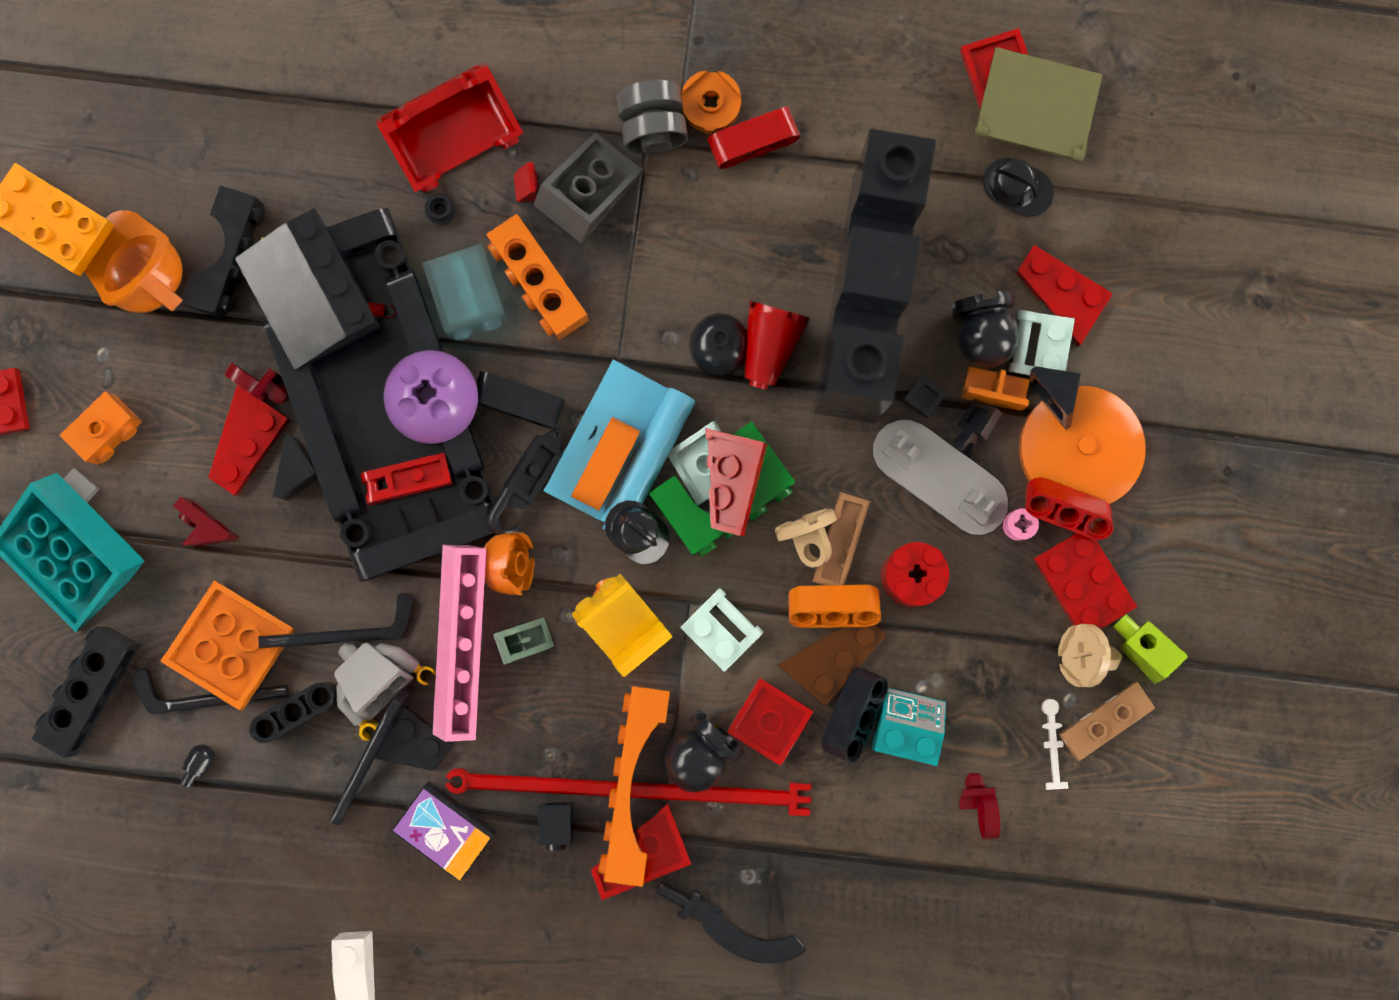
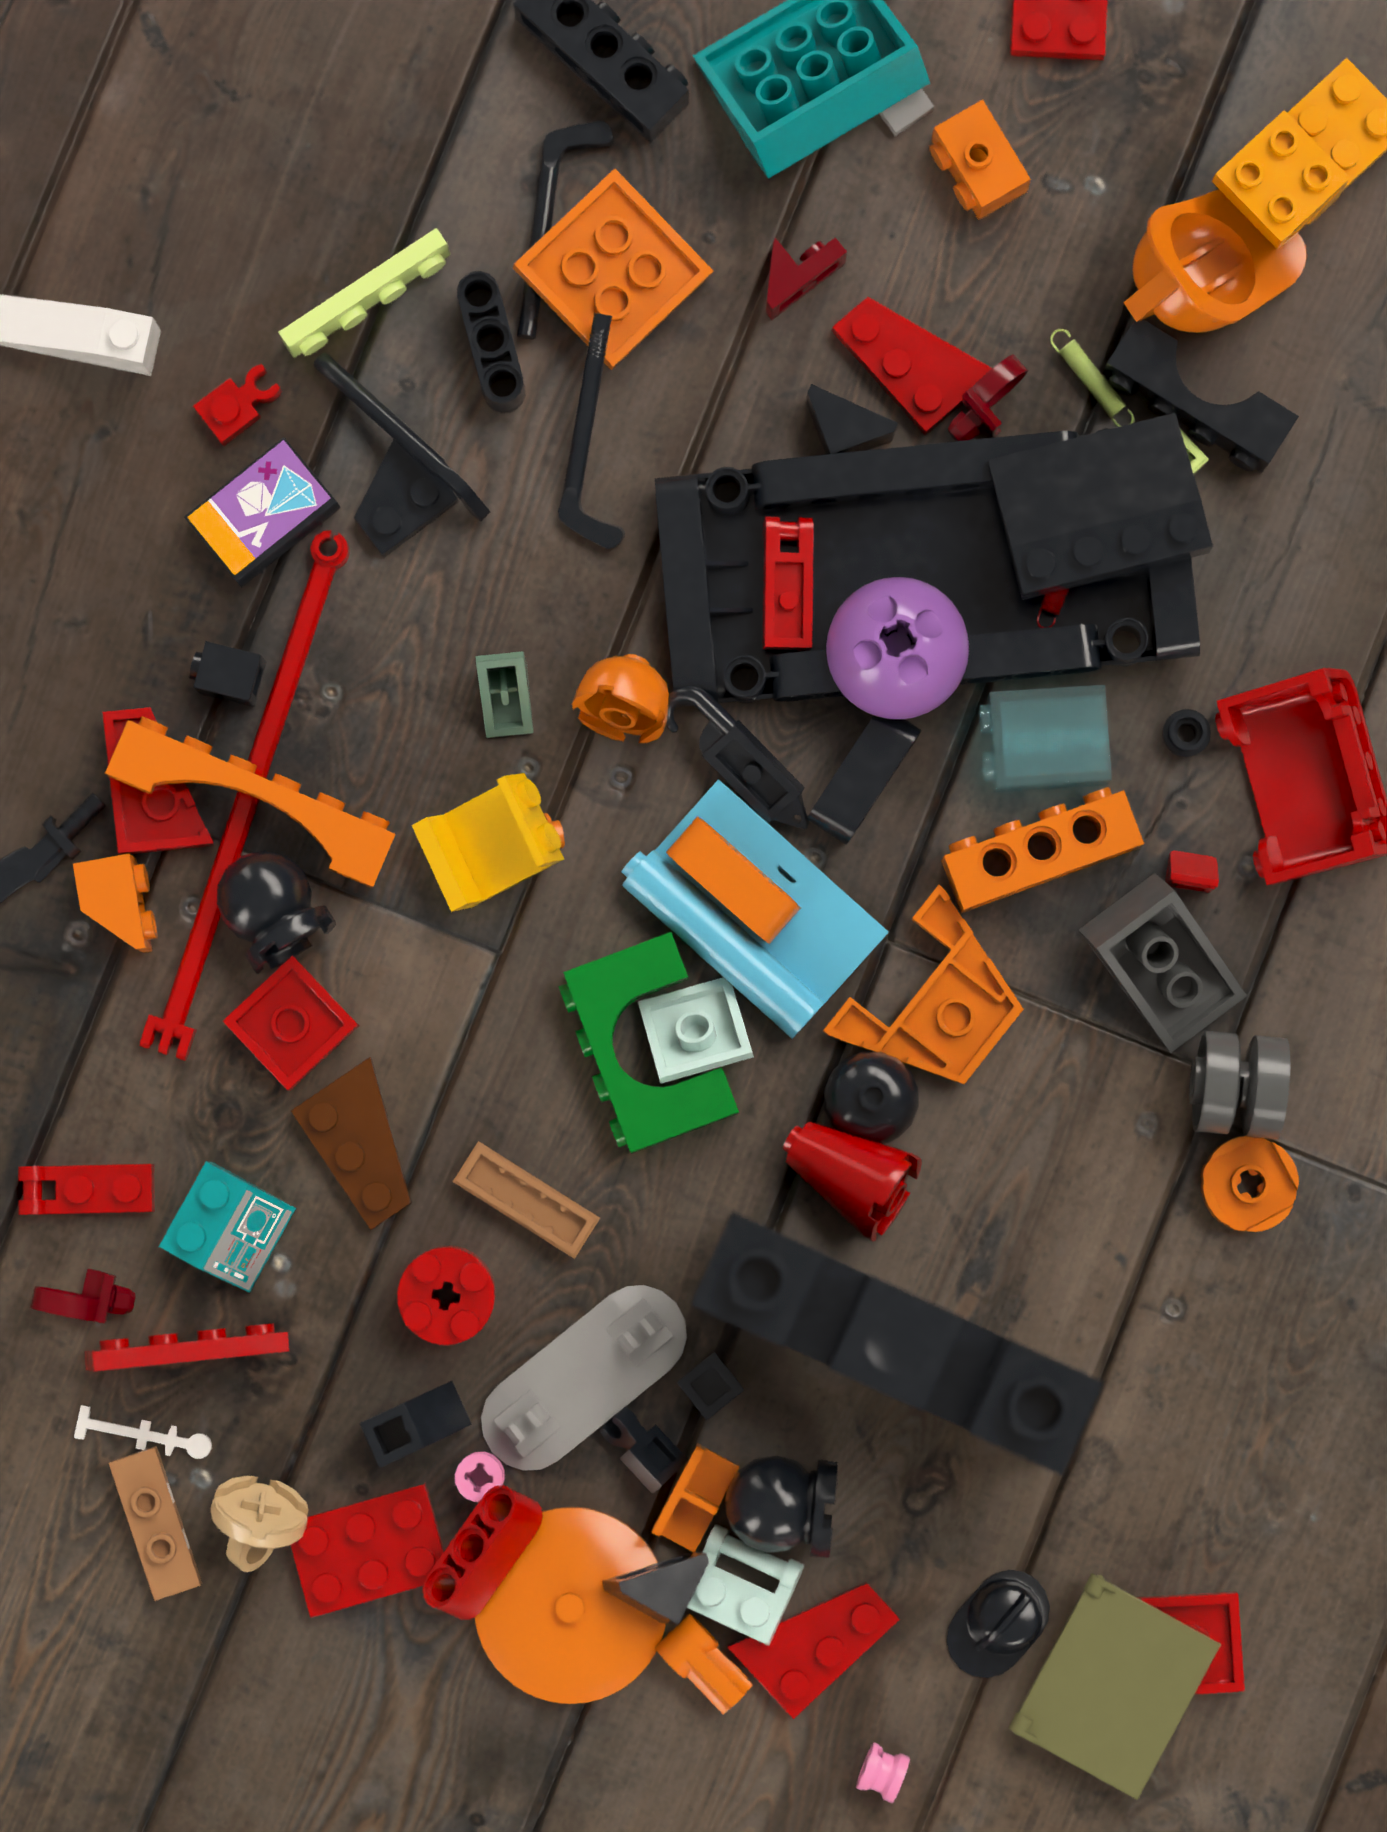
camera: 110 degrees right, 0 degrees up
(197, 764) = (455, 184): black cylinder -> none
(228, 323) = (1091, 378): none -> yellowish green piece
(292, 811) = (381, 284): none -> yellowish green plate
(372, 679) = (507, 463): light grey torso -> none
(381, 871) = (231, 409): none -> red plate
(459, 642) = (526, 600): bright pink brick -> none
(637, 532) = (620, 900): black piece -> none
(655, 307) = (954, 1013): none -> orange wing
(714, 638) = (436, 974): light aqua plate -> none
(720, 859) = (112, 895): none -> orange slope
(734, 477) = (657, 1060): wing -> none
(753, 138) = (1175, 1234): red beam -> none
(806, 531) = (552, 1154): tan tile -> none
(834, 606) = (432, 1162): orange beam -> none
(855, 714) = (266, 1149): black beam -> none
(909, 823) = (88, 1189): none -> red plate
(999, 738) = (167, 1349): none -> red wing
(1001, 573) = (415, 1424): none -> black slope
(1096, 354) = (696, 1655): none -> orange piece
(1129, 230) = (883, 1772): none -> bright pink wheel
(1160, 657) = (225, 1625): lime torso -> none

